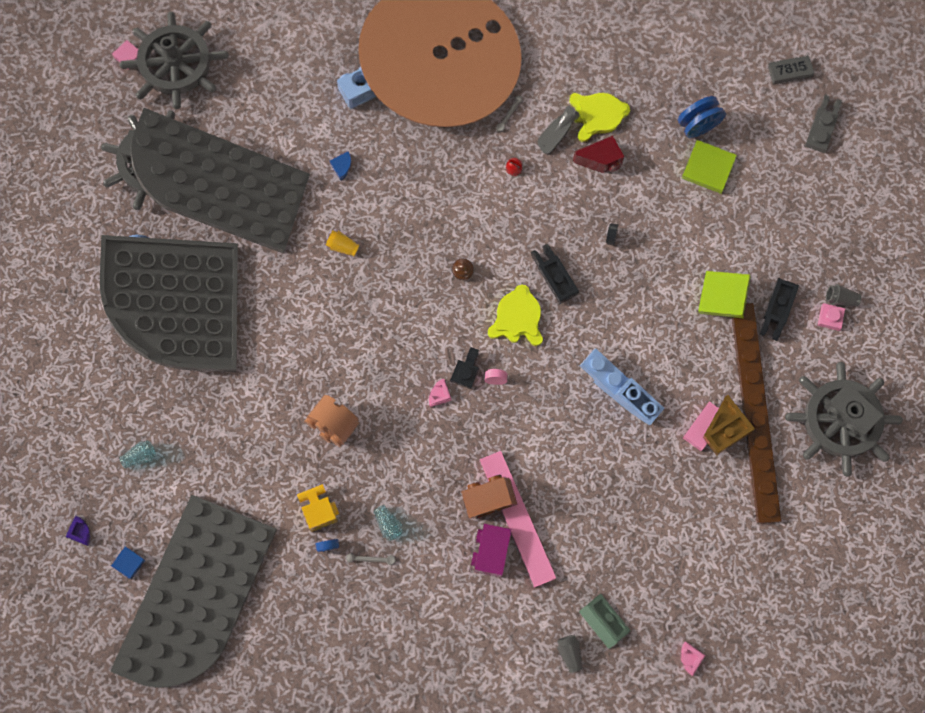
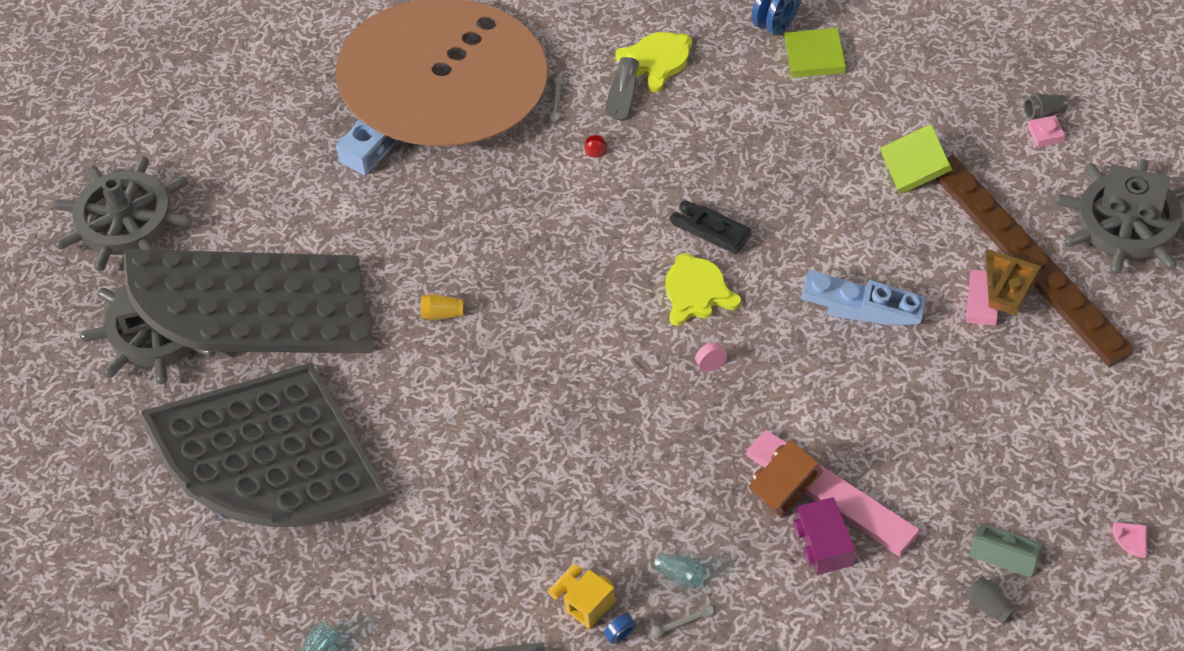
camera: 20 degrees left, 20 degrees down
(125, 52) = (54, 231): bright pink tile -> none
(332, 420) = (544, 486): nougat brick -> none
(341, 165) = (389, 232): blue tile -> none
(439, 394) = (654, 407): bright pink tile -> none
(463, 269) = (601, 269): reddish brown plate -> none
(466, 372) = (670, 370): black plate -> none
(600, 156) = (687, 92): dark red slope -> none
(612, 234) = (751, 158): black tile -> none
(779, 307) = (984, 146): black hinge -> none

